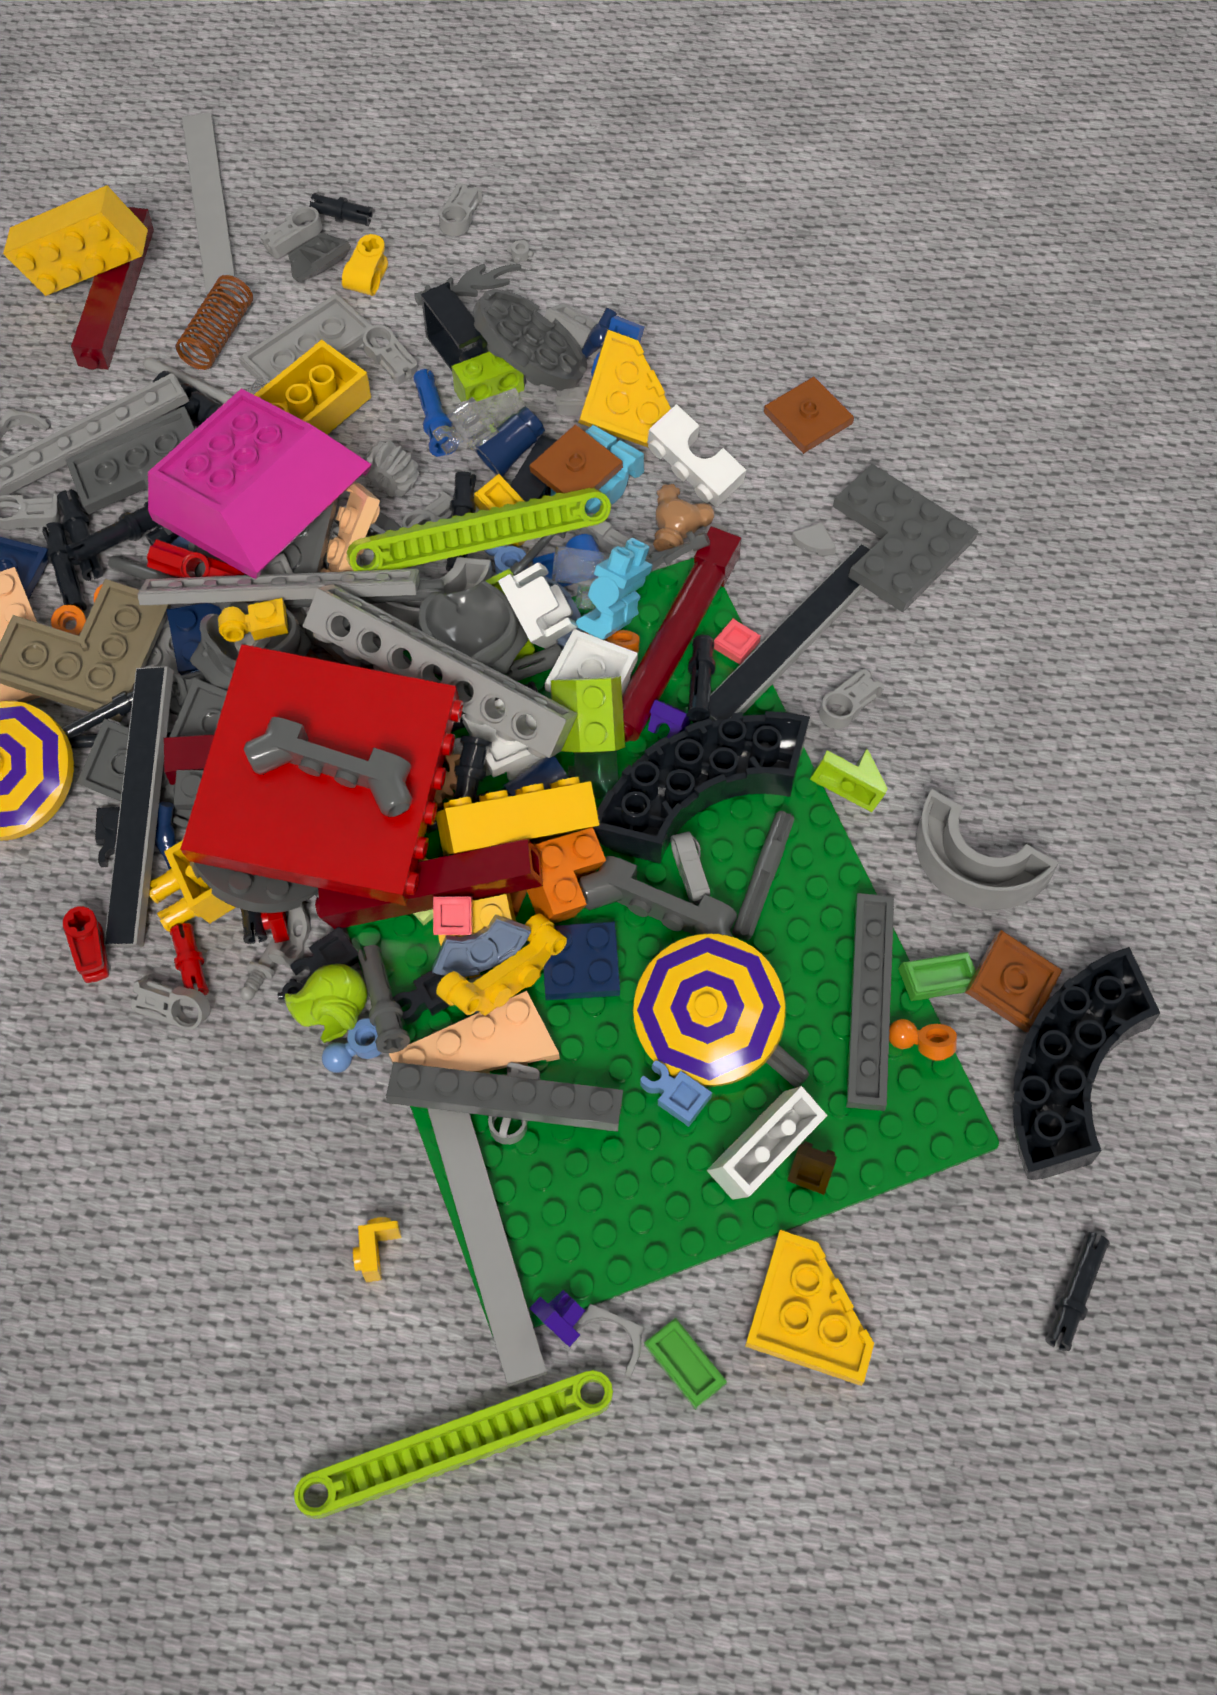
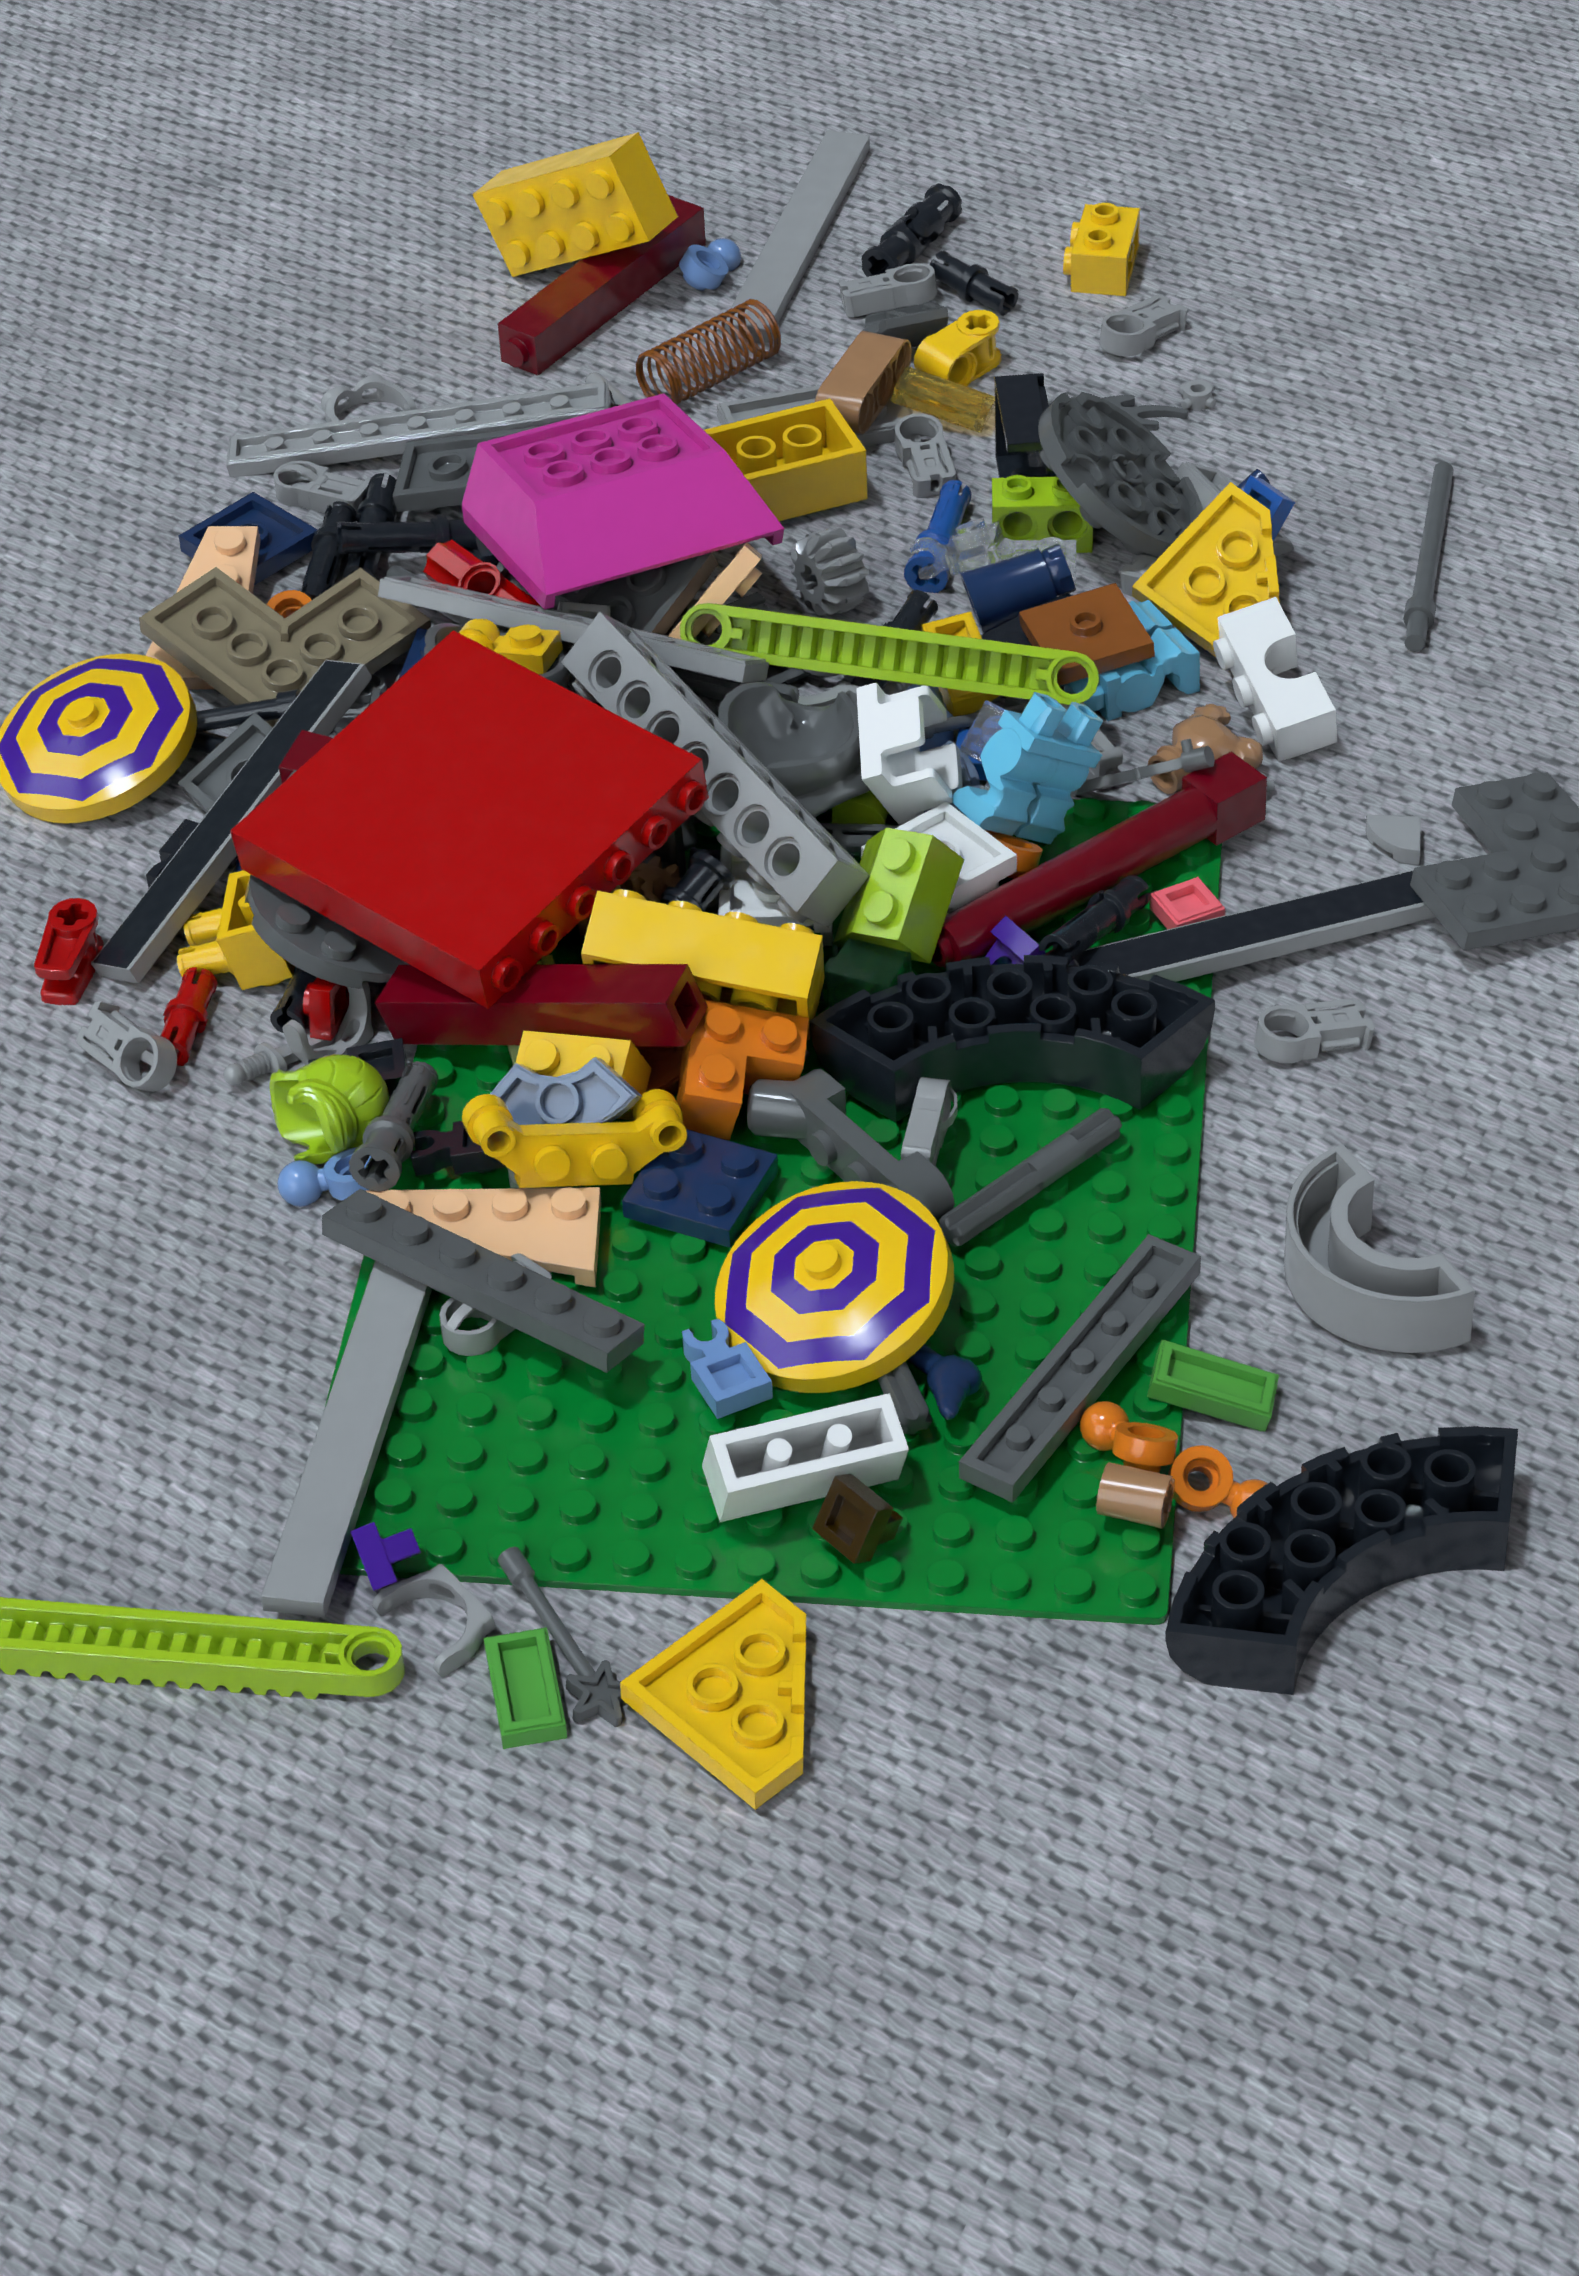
camera: 30 degrees right, 20 degrees down
(169, 248) = (709, 265): none -> medium blue plate
(282, 182) = (913, 231): none -> black piece
(288, 743) = (435, 745): dark grey plate -> none
(325, 311) = (866, 377): none -> medium nougat beam
(366, 1256) = (193, 1391): yellow bracket -> none
(376, 307) = (943, 399): none -> clear yellow tile
(406, 158) = (1103, 249): none -> yellow brick
(453, 915) = (541, 1038): coral tile -> none
(725, 1343) = (595, 1690): none -> dark grey piece
(736, 369) = (1420, 608): none -> dark grey bar
(804, 1041) = (948, 1378): none -> dark blue animal
(808, 414) = (1494, 693): dark orange plate -> none
(856, 783) = (1243, 1118): lime slope -> none
(951, 1078) = (1135, 1495): none -> medium nougat piece
(1000, 1045) = (1220, 1477): none -> orange plate
(1013, 981) = (1314, 1415): dark orange plate -> none
(1072, 1306) = (1136, 1832): black pin -> none

